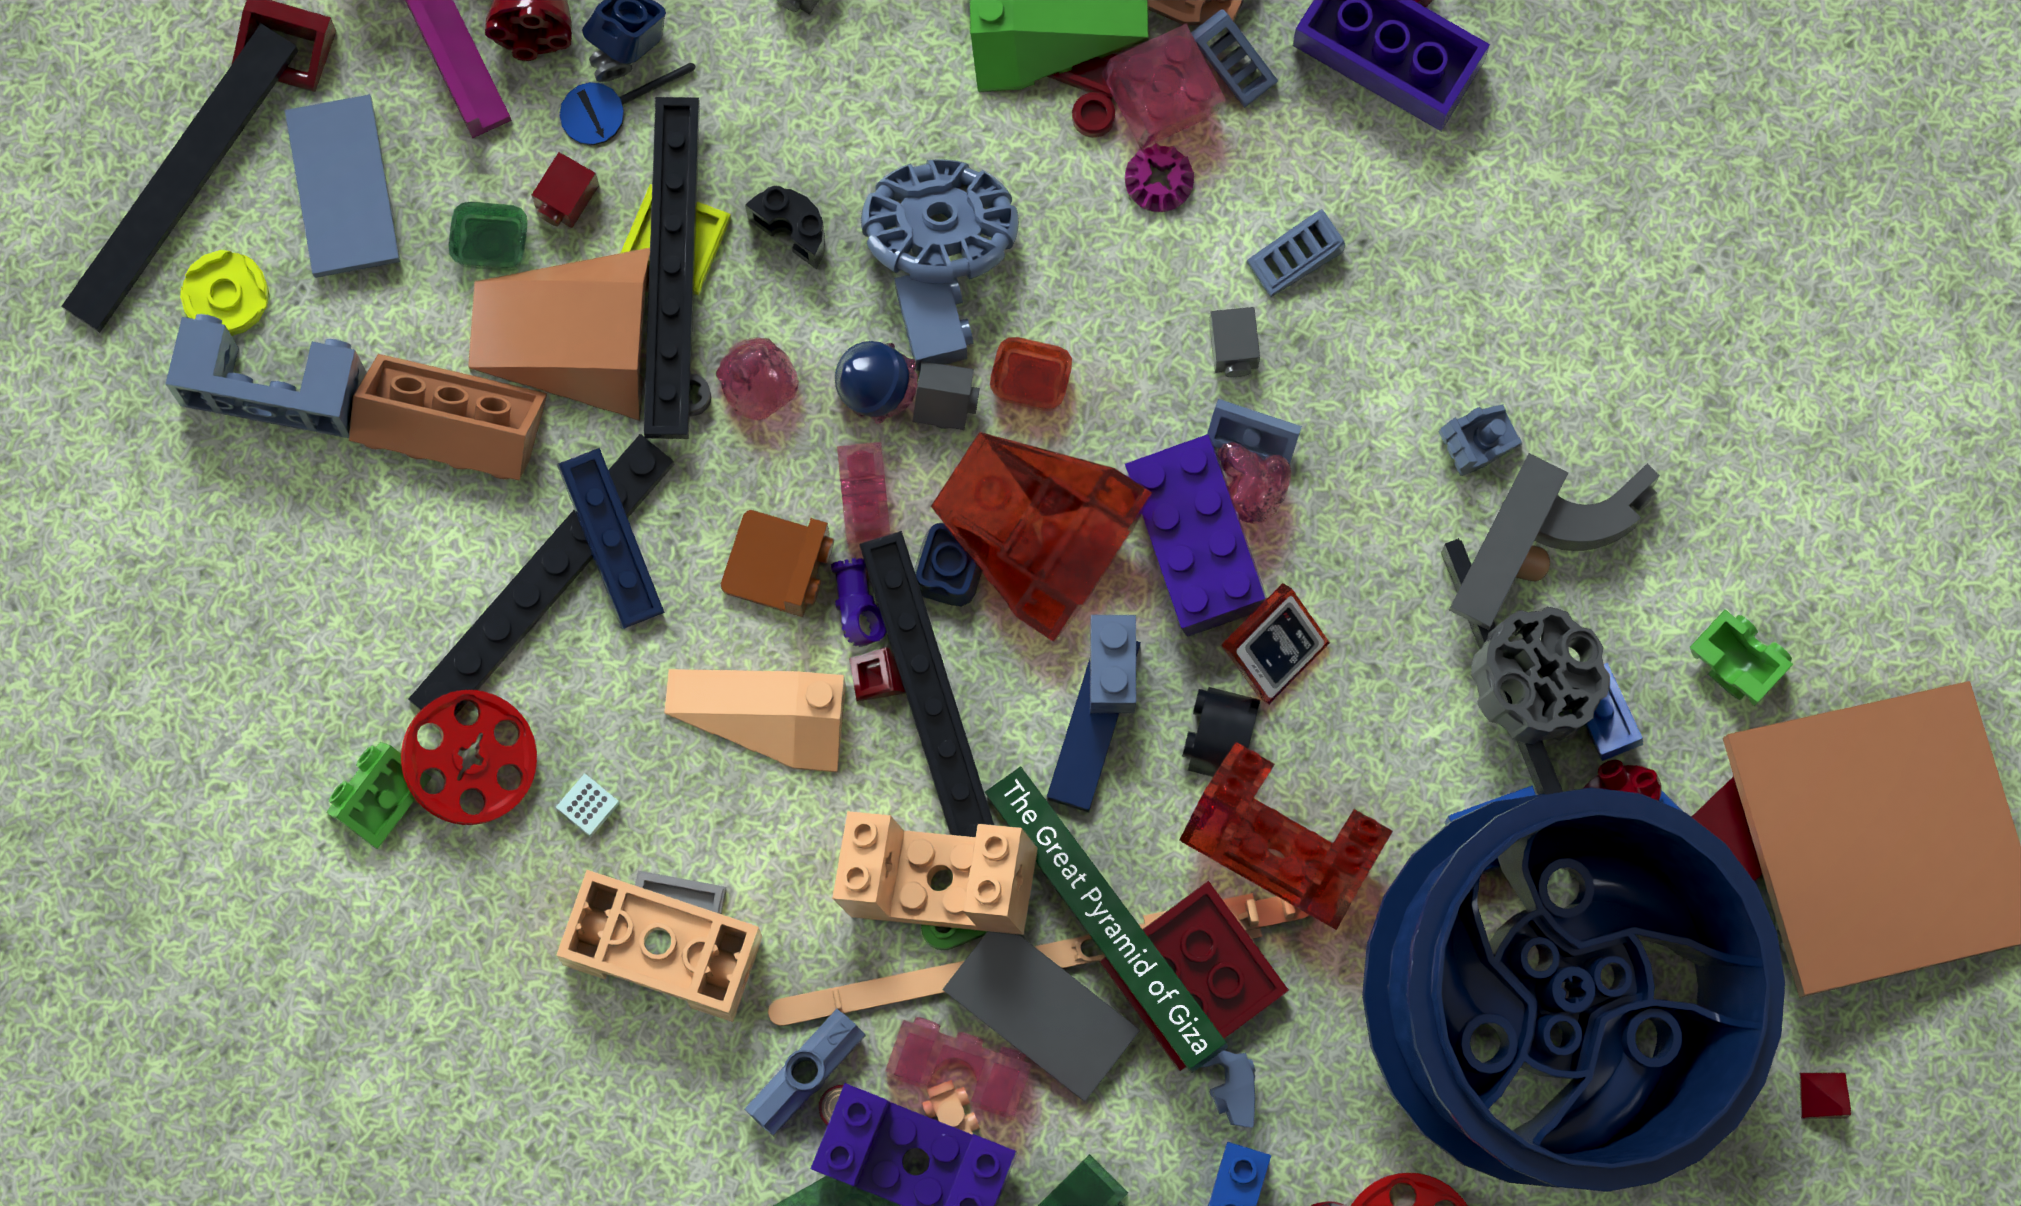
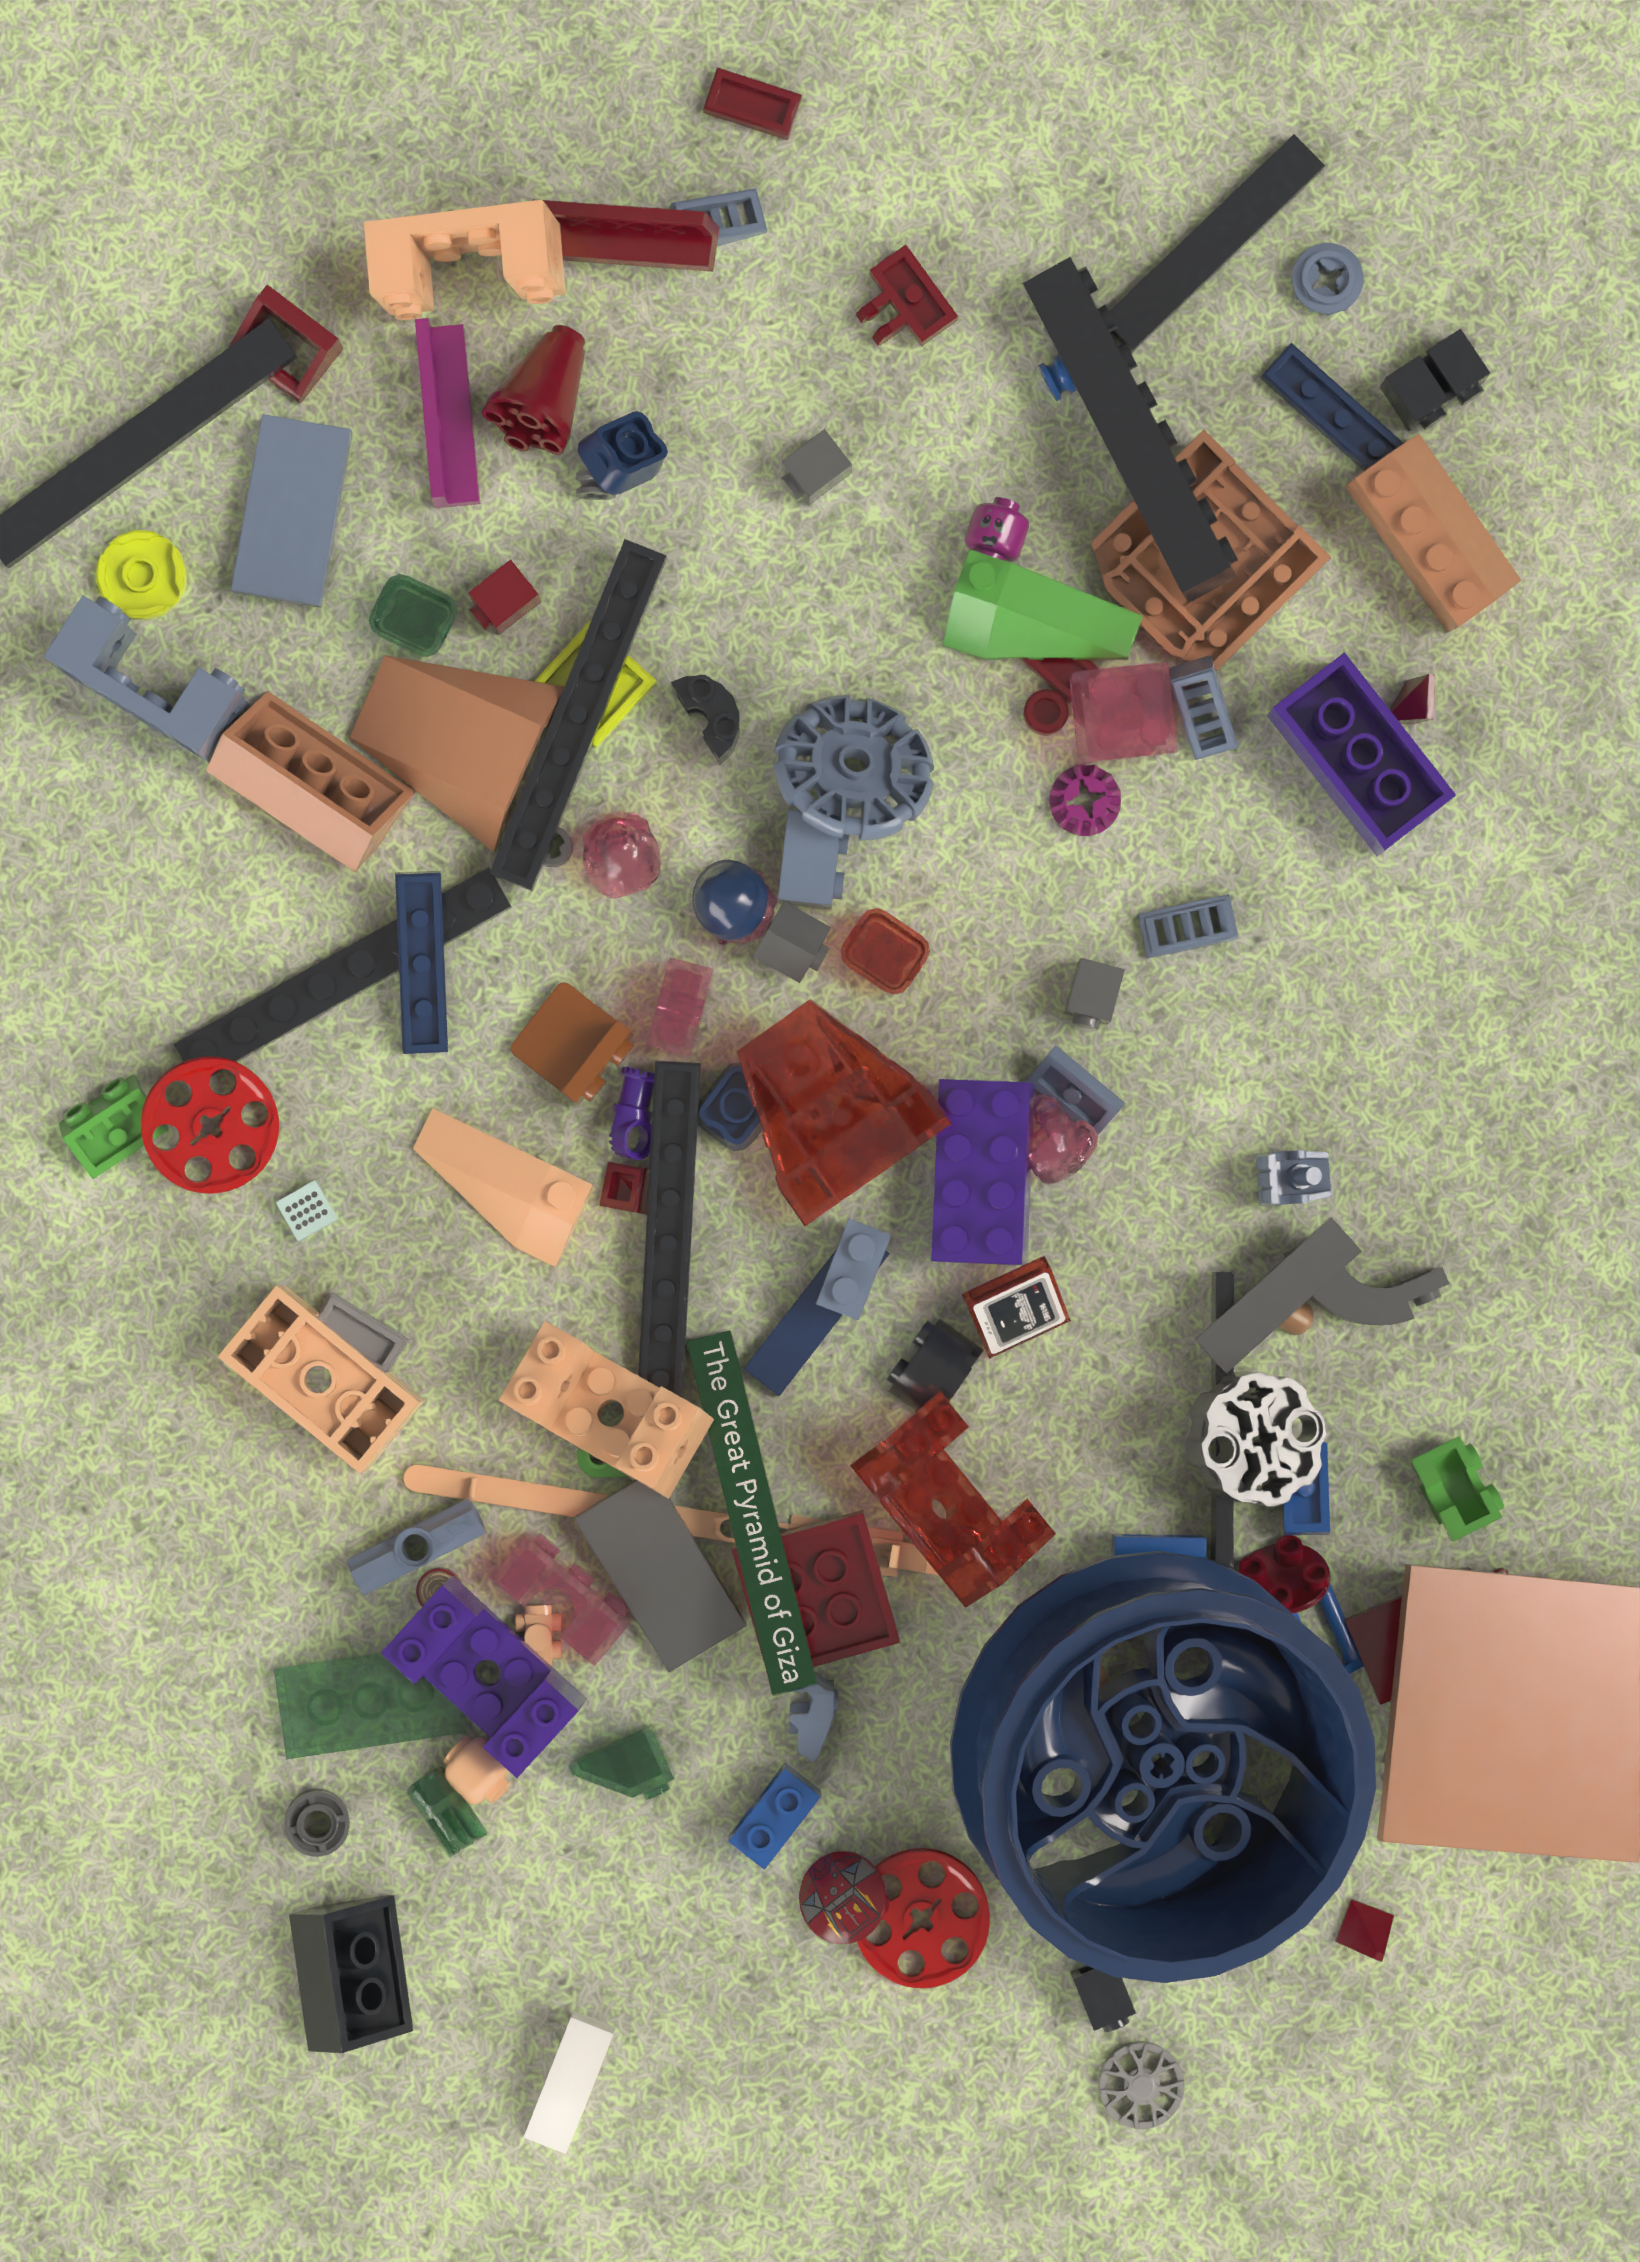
camera: 15 degrees right, 10 degrees up
(595, 112) = (563, 525): blue piece -> none

